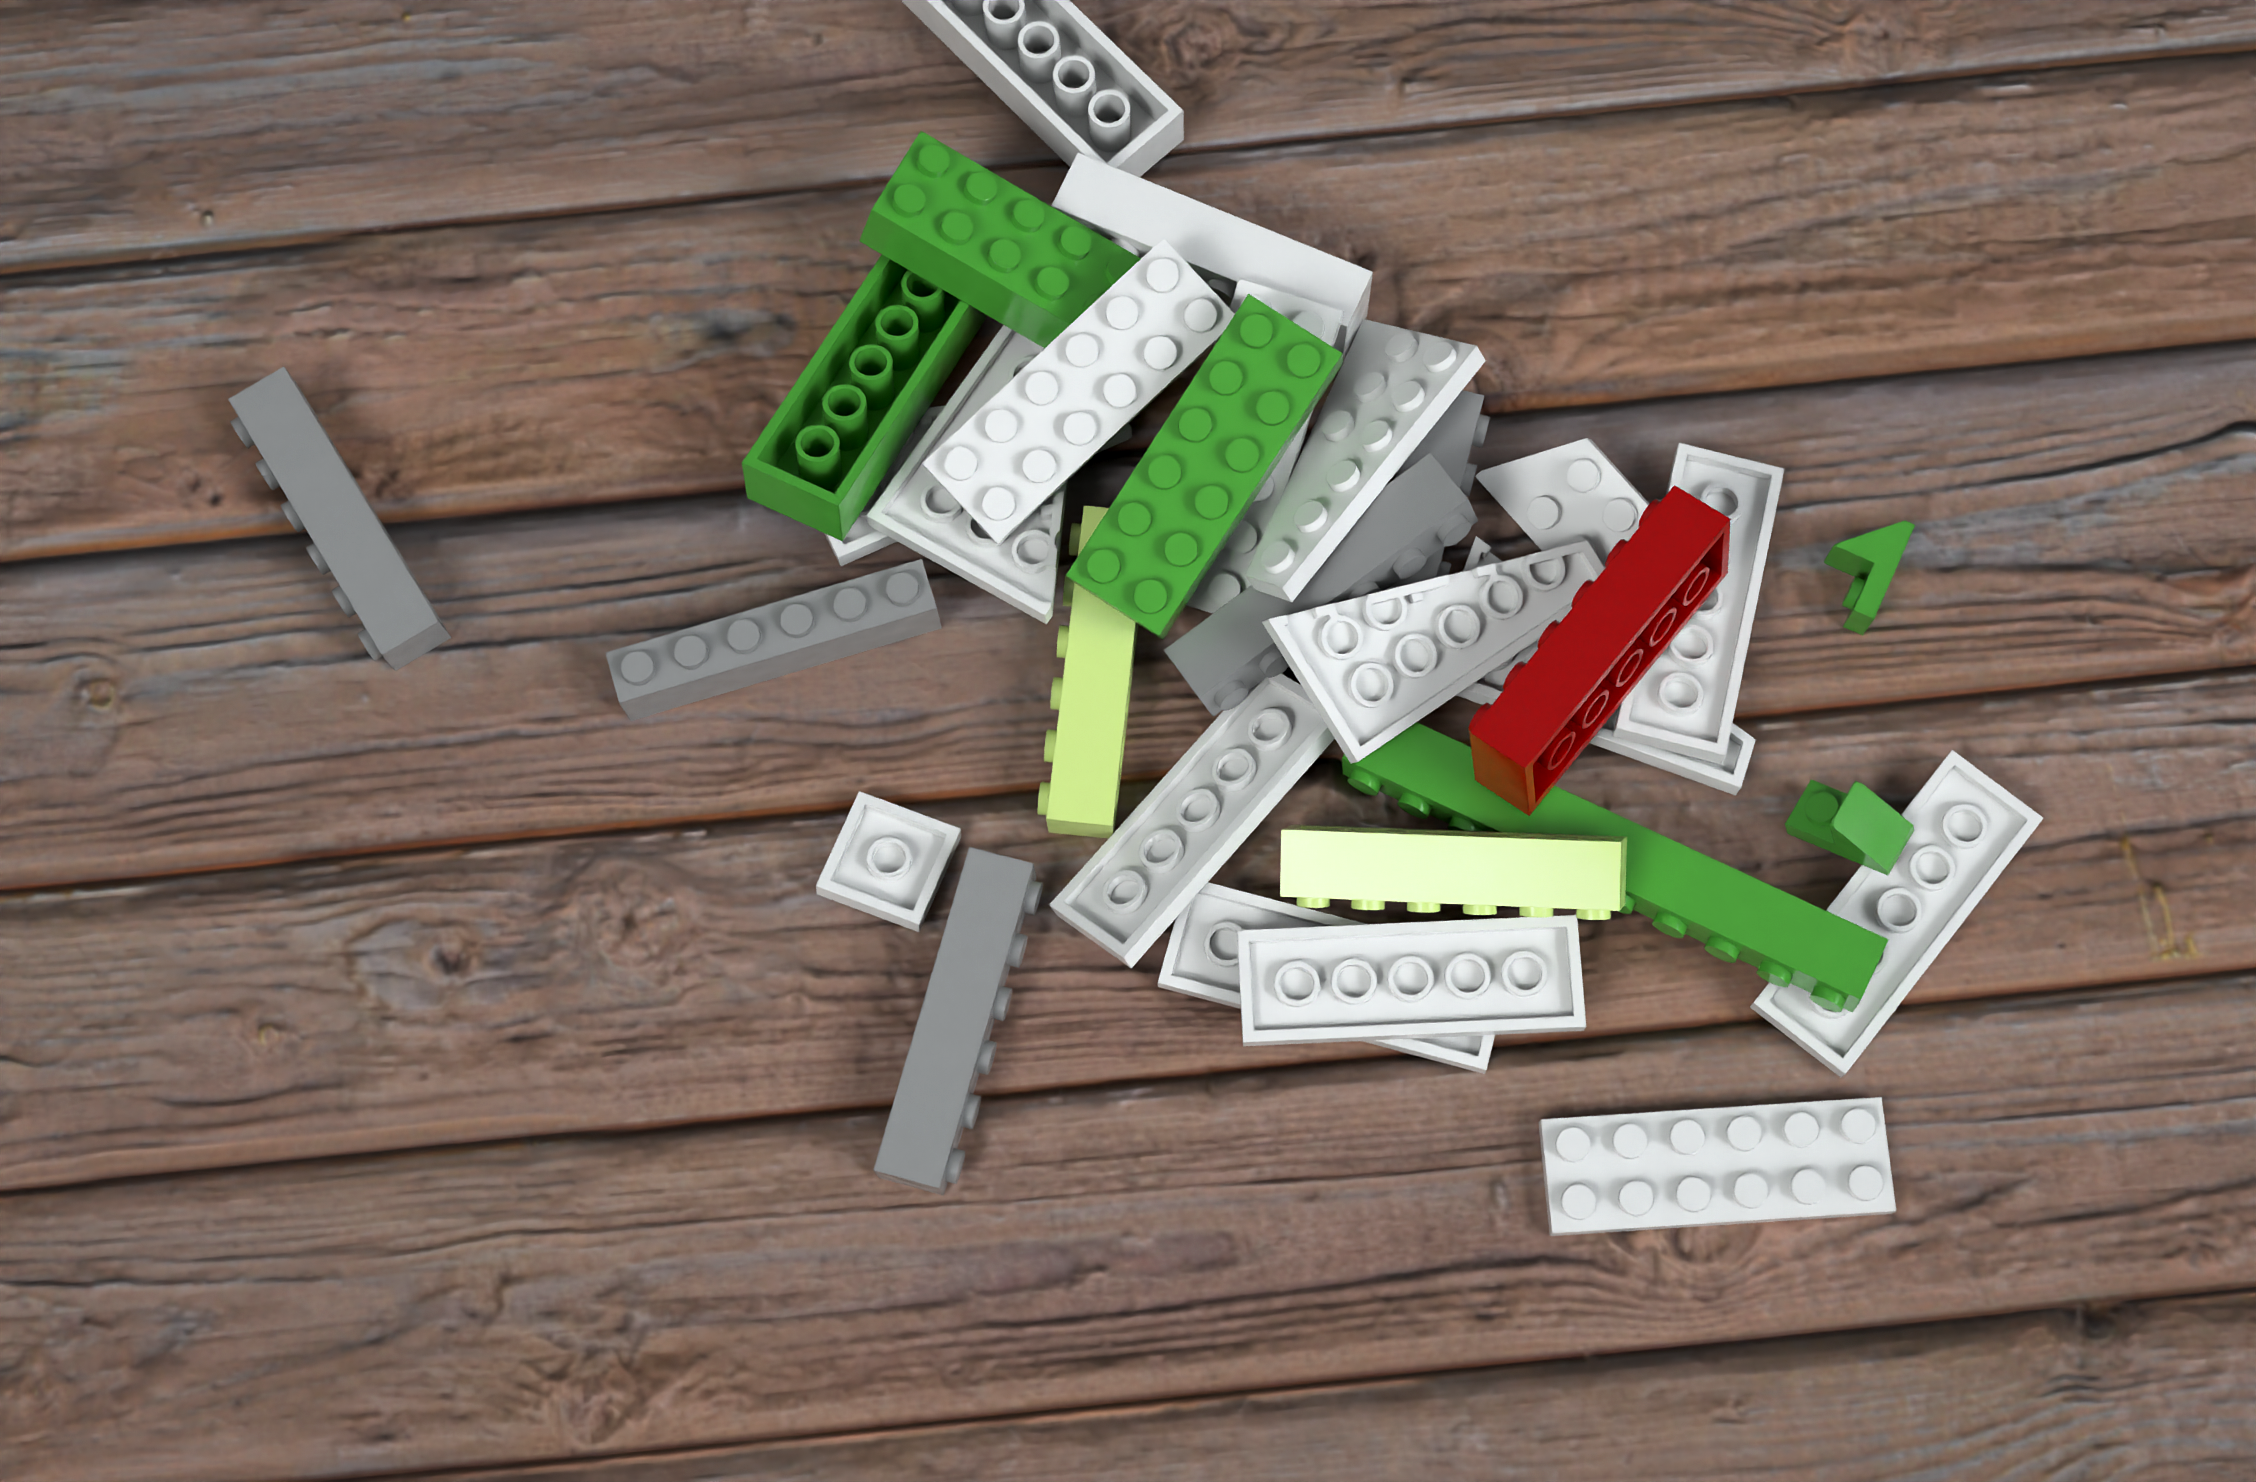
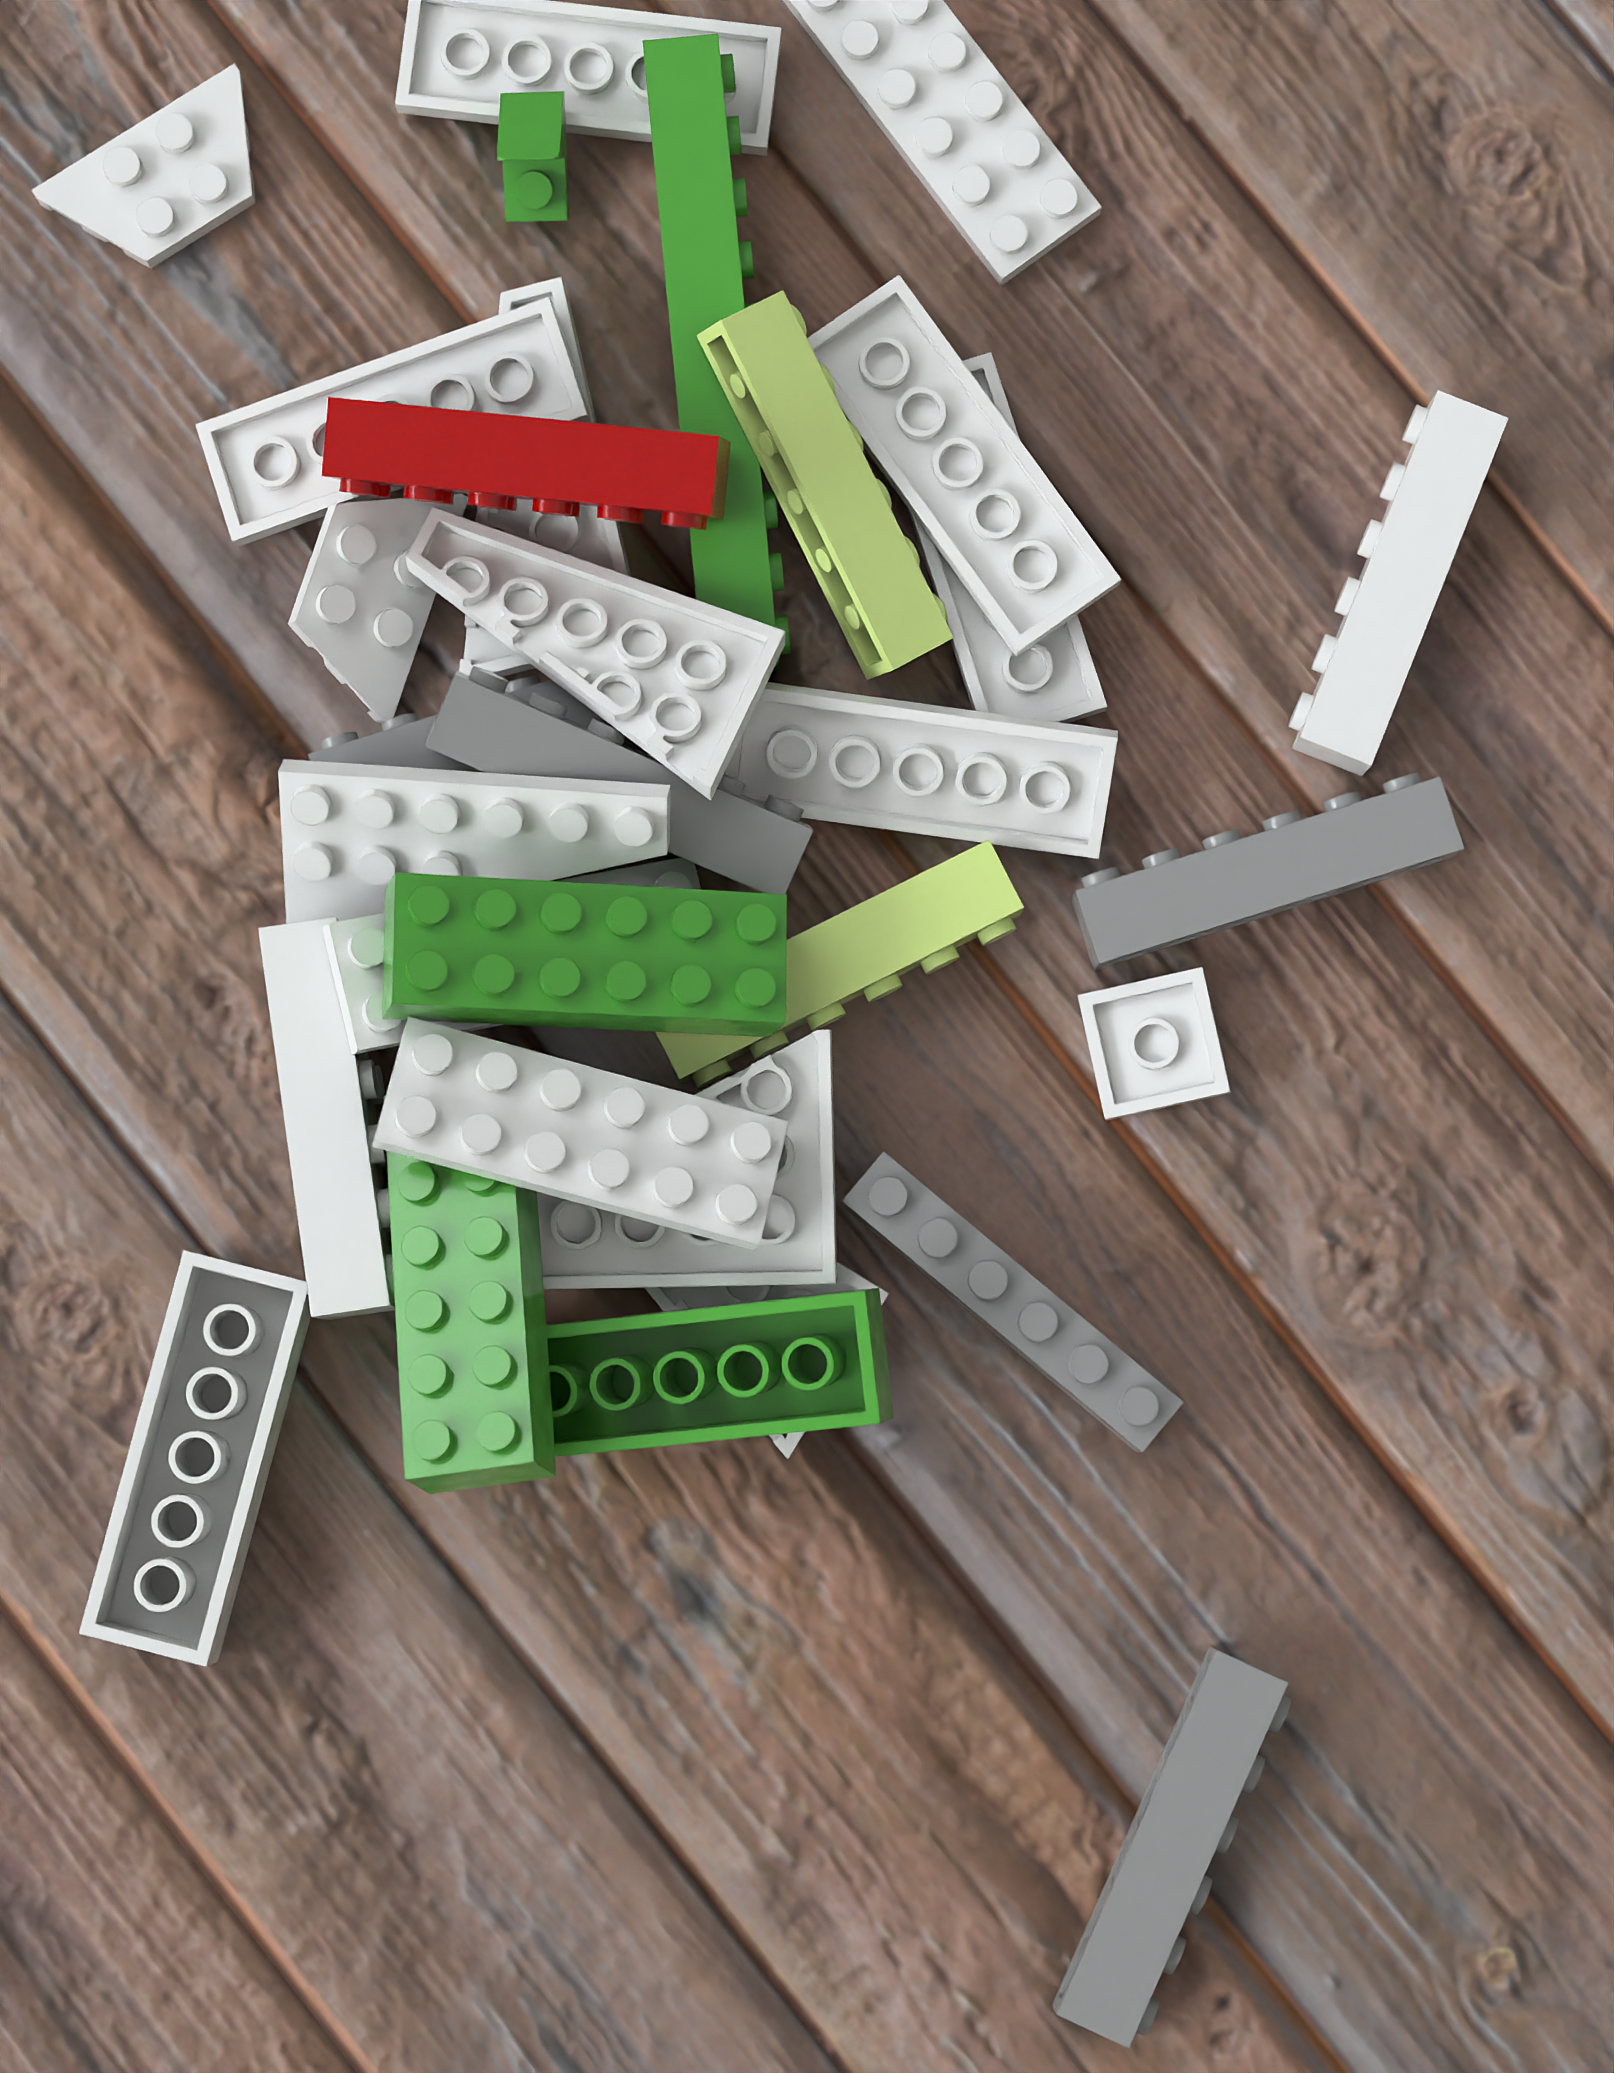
camera: 130 degrees left, 10 degrees up
(1111, 1267) = (1398, 583): none -> white brick
(1872, 562) = (239, 277): bright green slope -> none
(1994, 563) = (163, 176): none -> white wing

